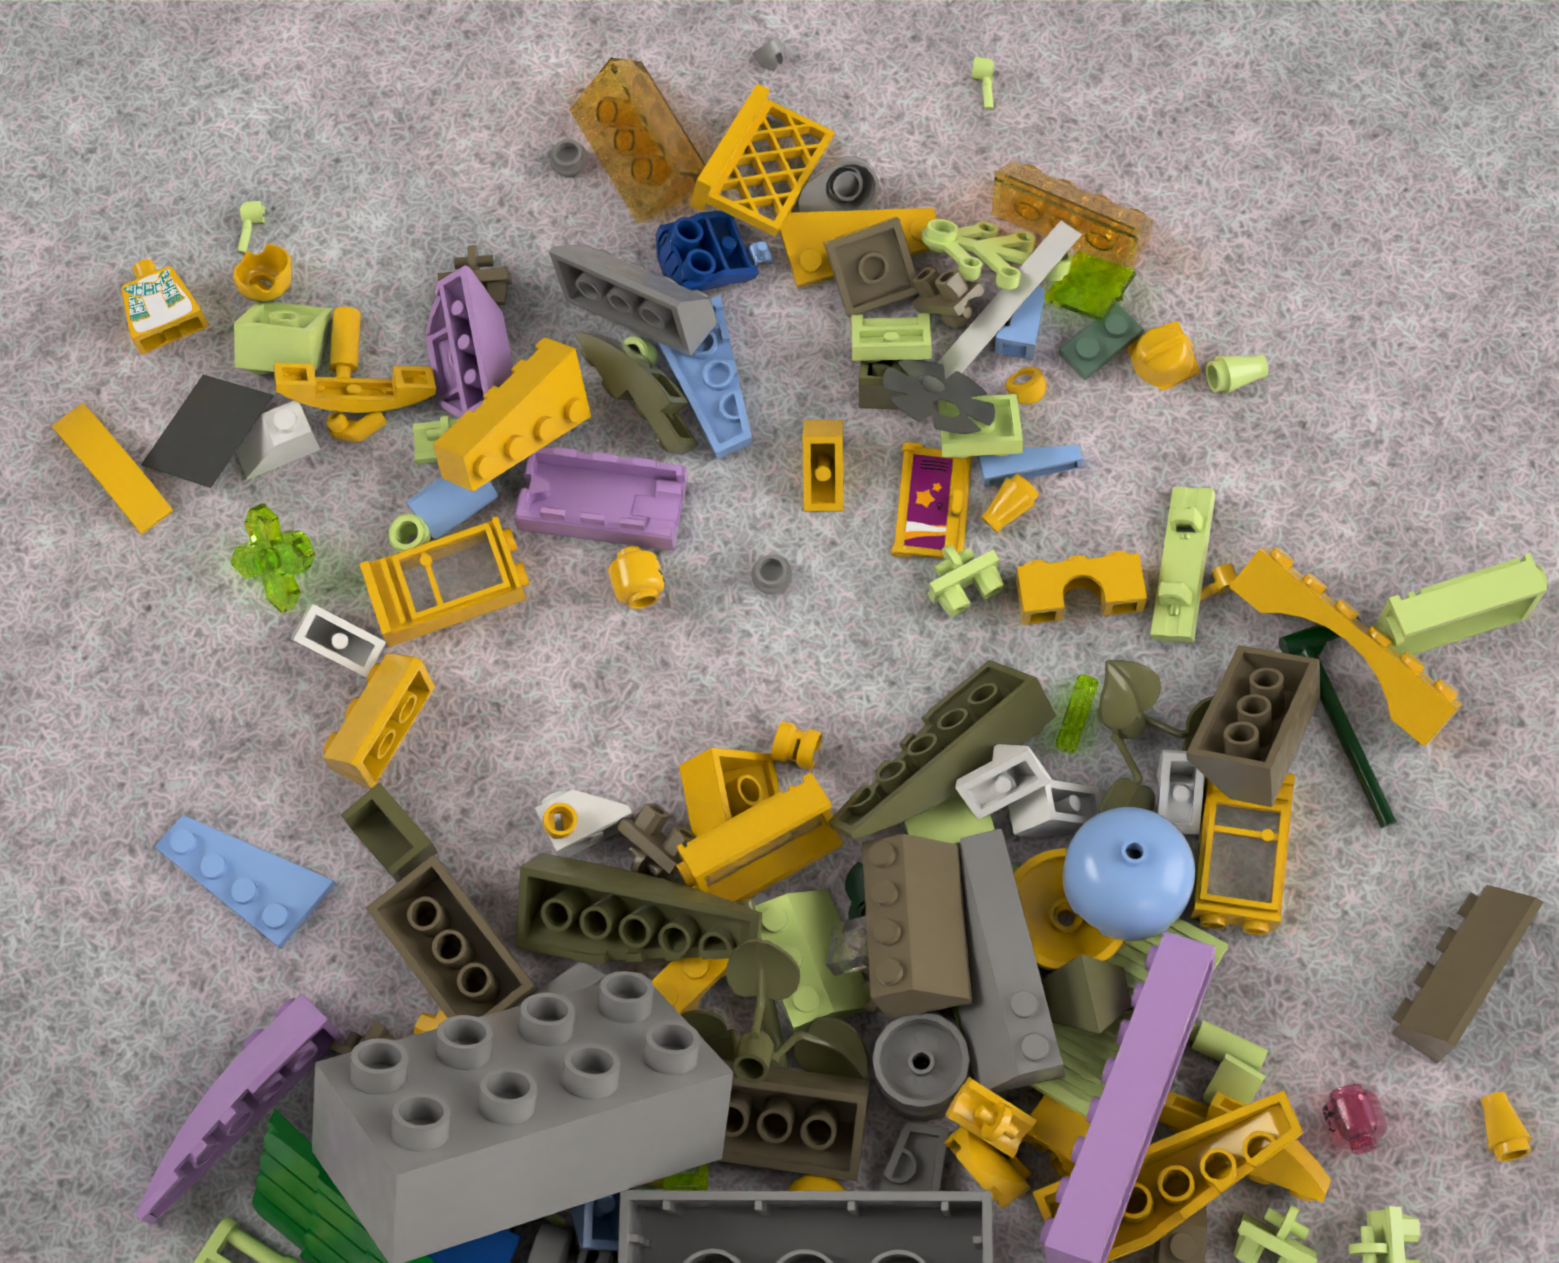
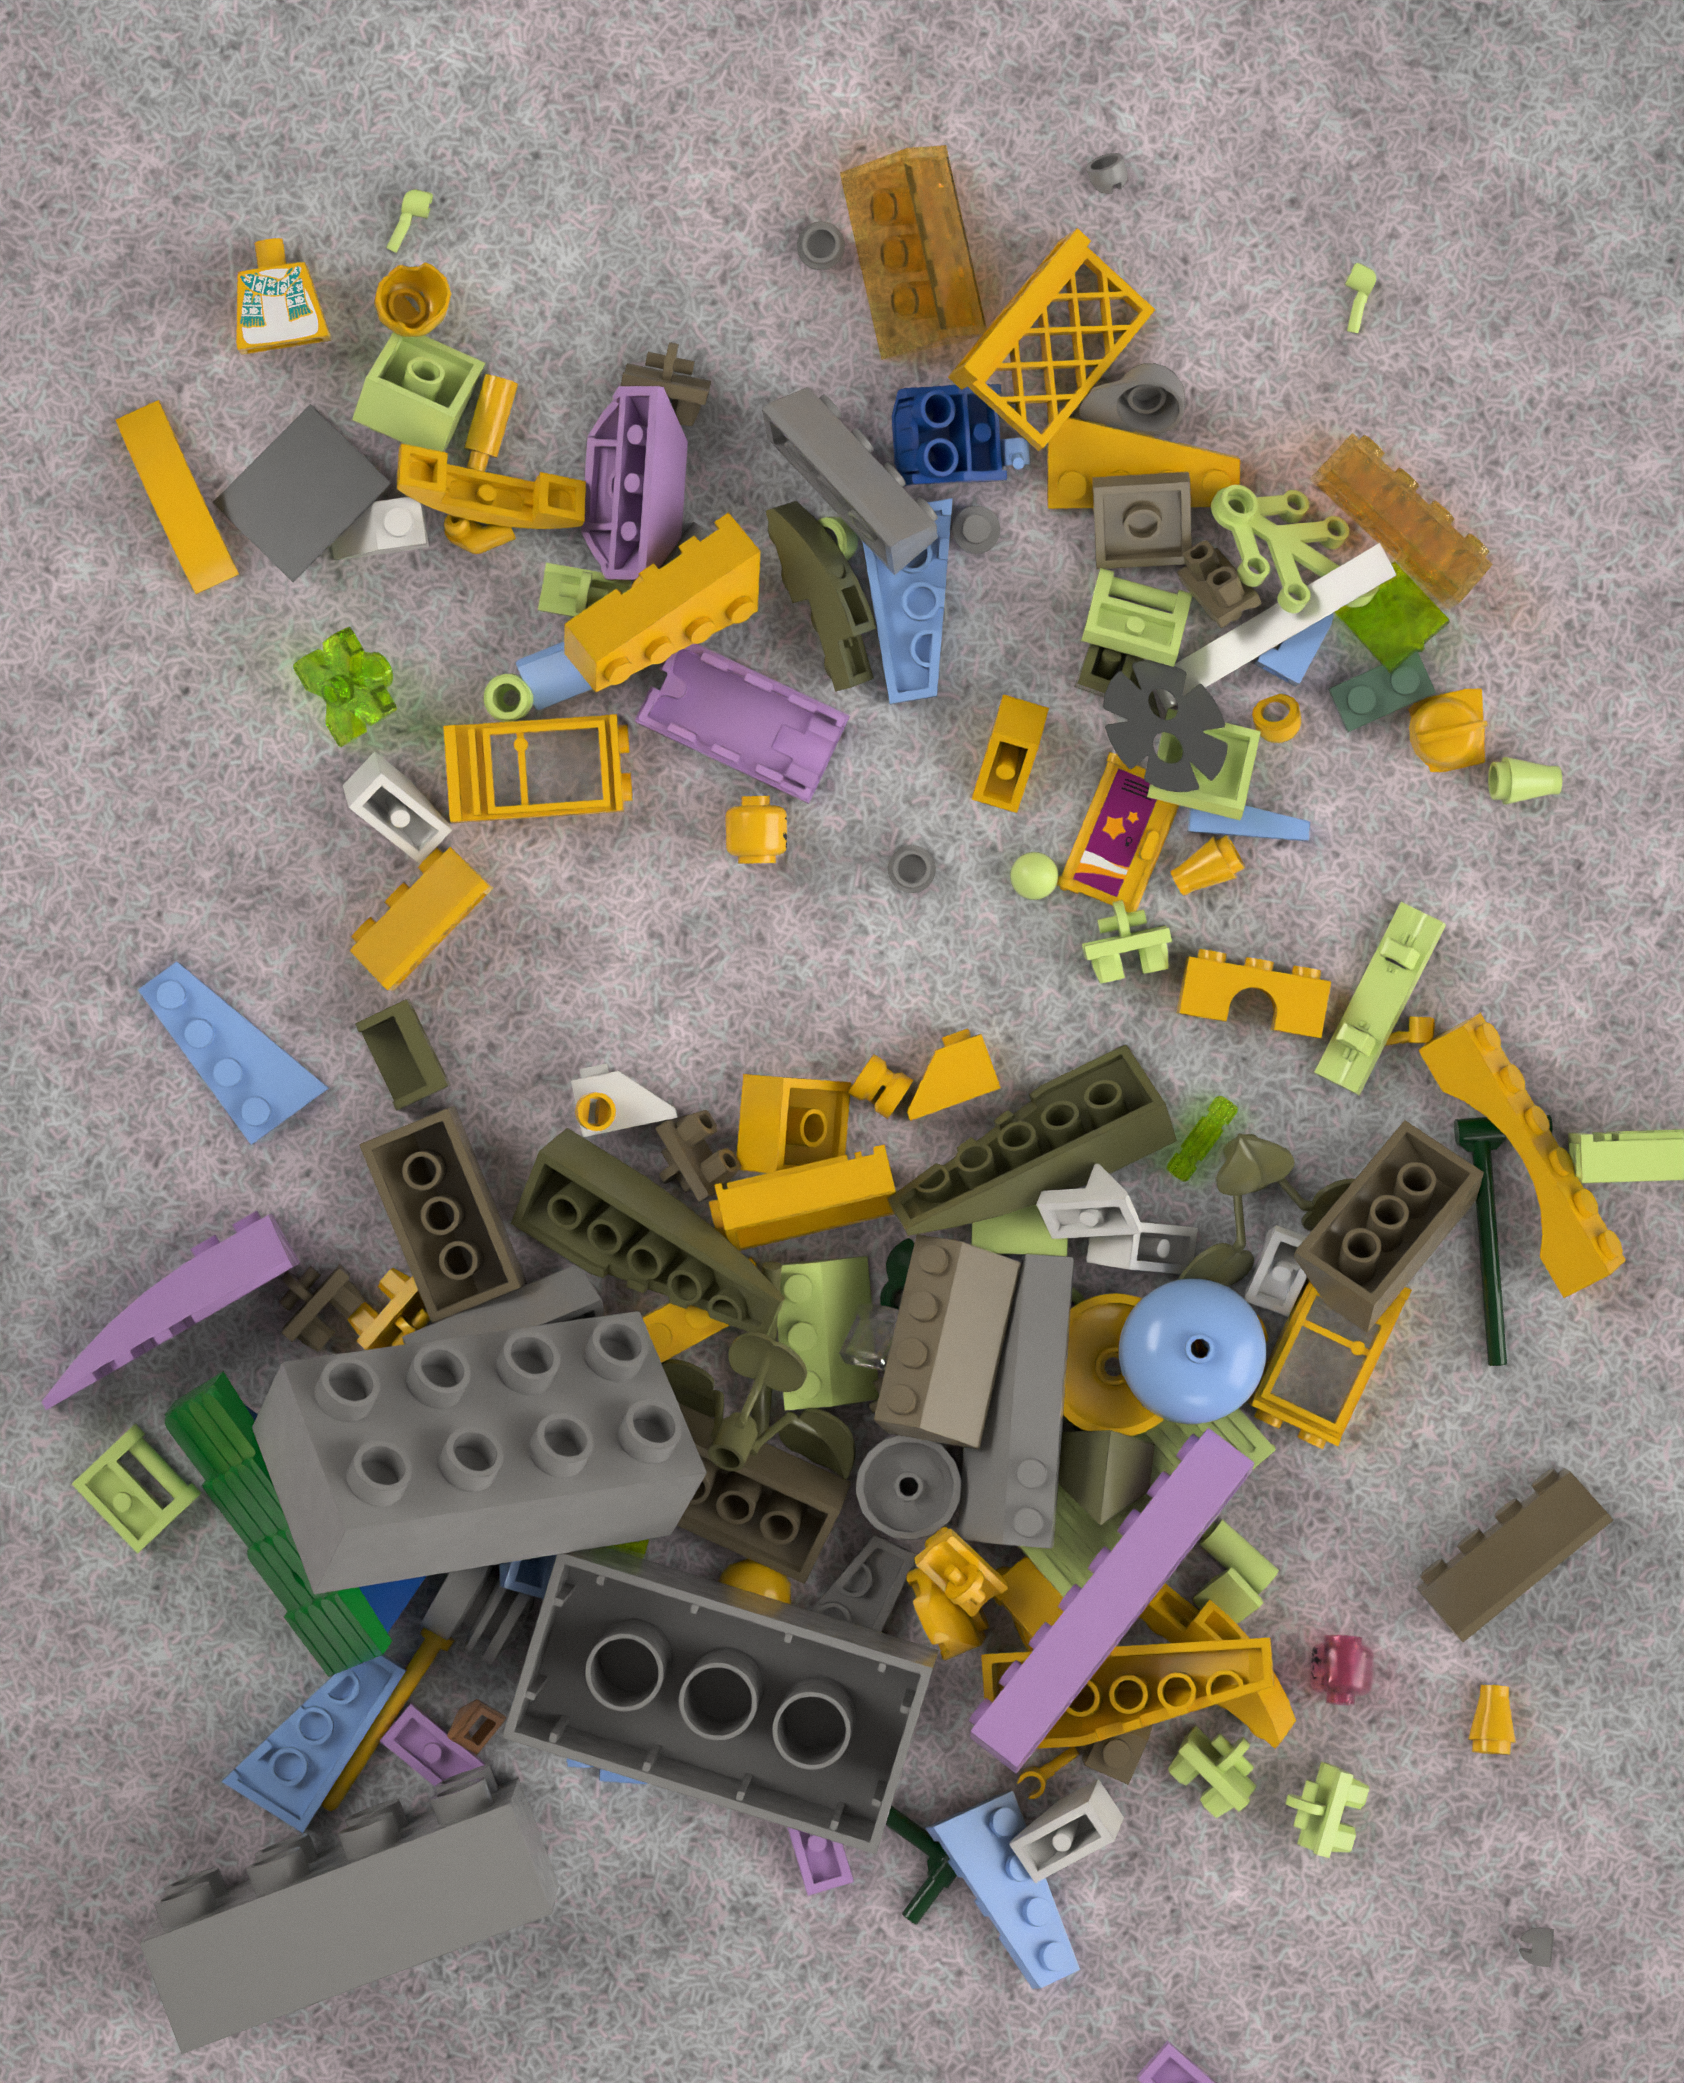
camera: 10 degrees right, 20 degrees up
(746, 316) = (976, 529): none -> light grey plate
(856, 719) = (954, 1075): none -> yellow slope
(872, 552) = (1034, 875): none -> yellowish green piece

